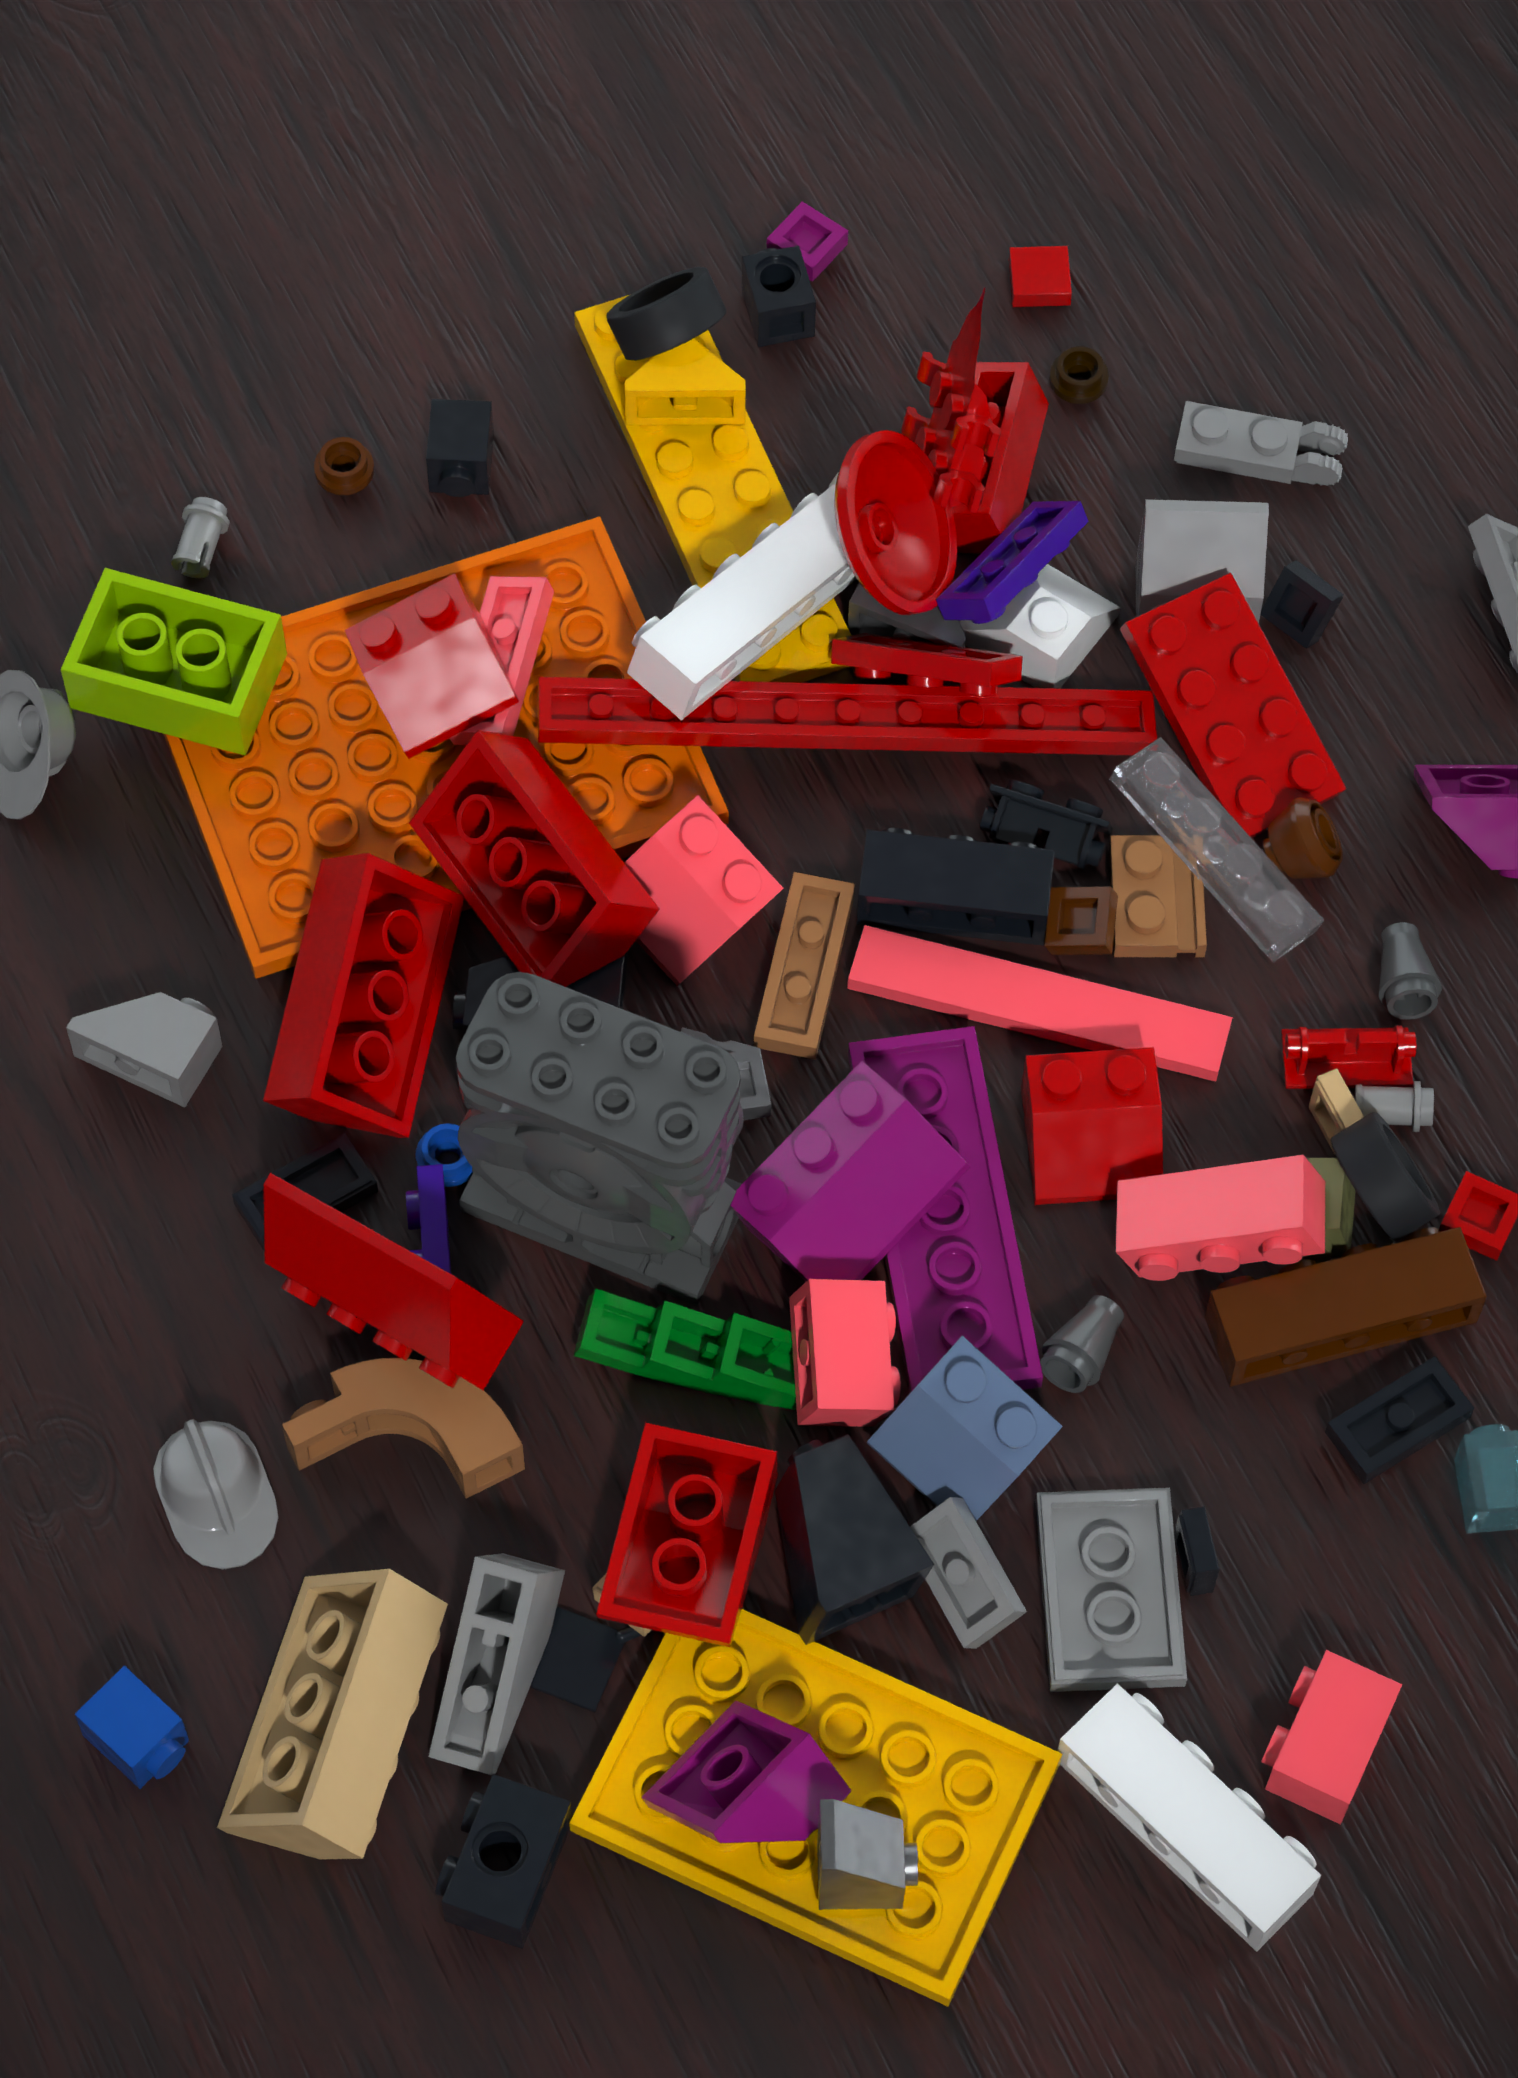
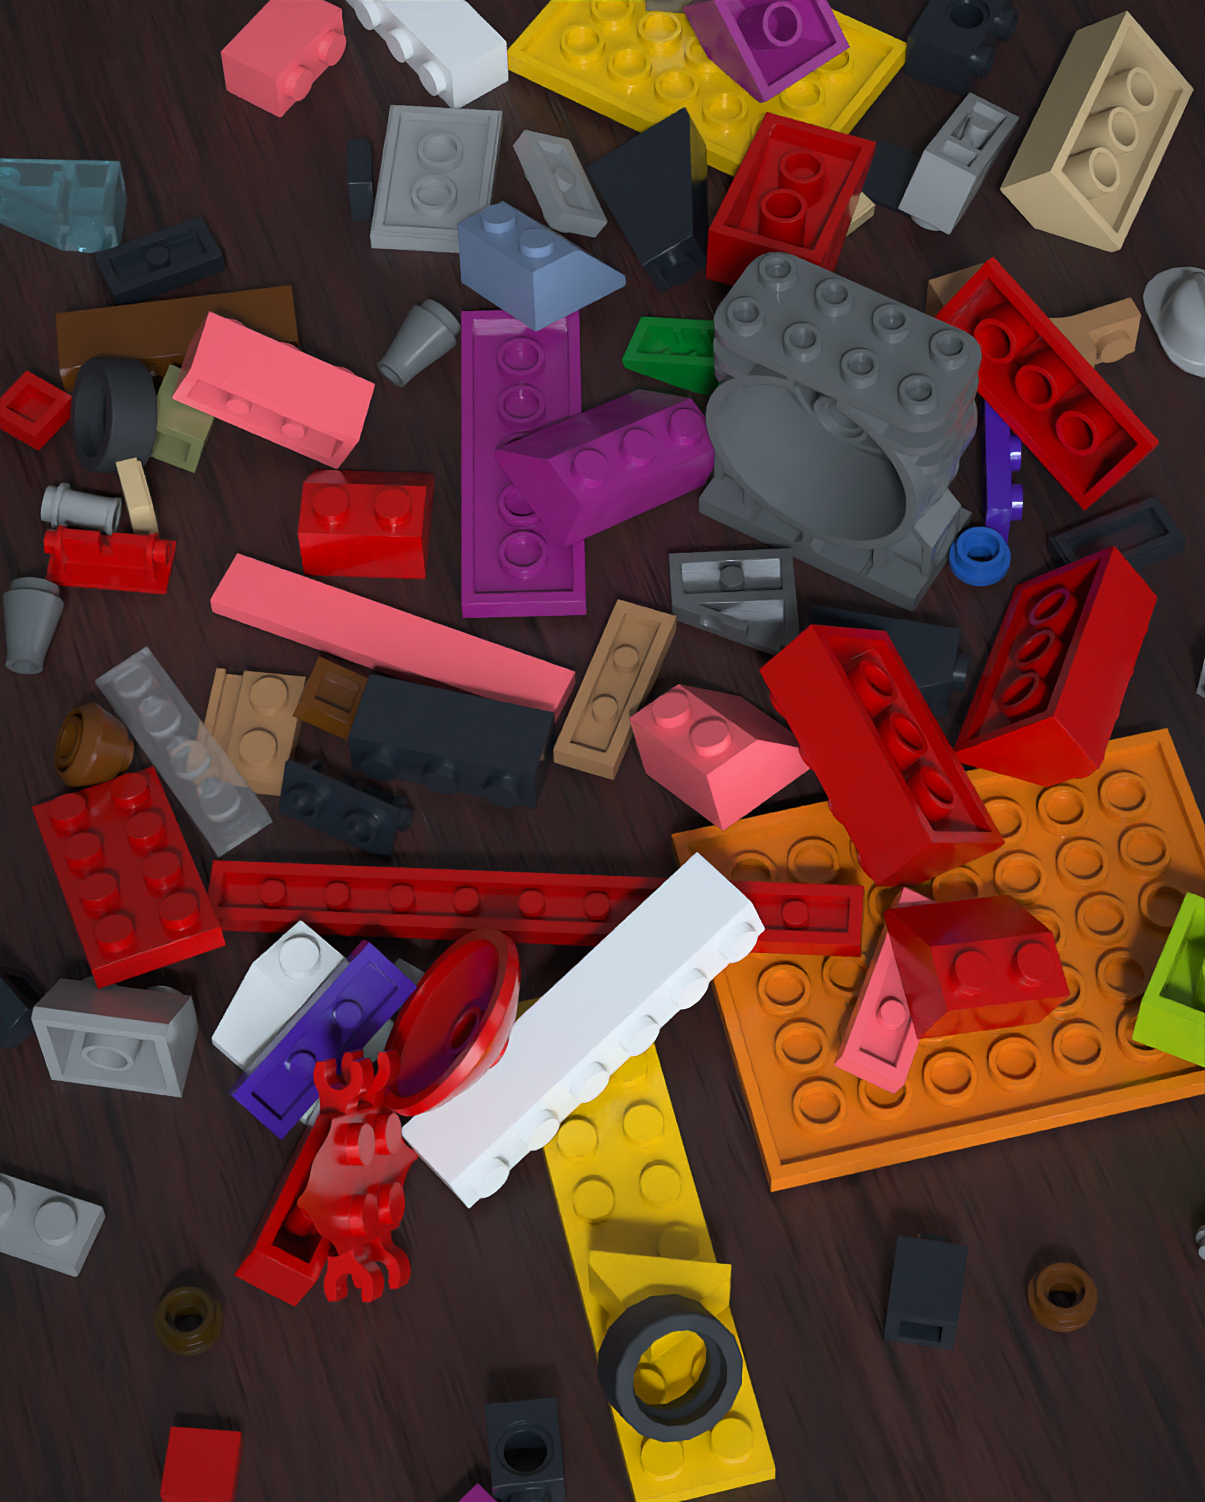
camera: 170 degrees left, 5 degrees down
(843, 1353) = (635, 327): coral brick -> none
(926, 662) = (410, 919): red plate -> none

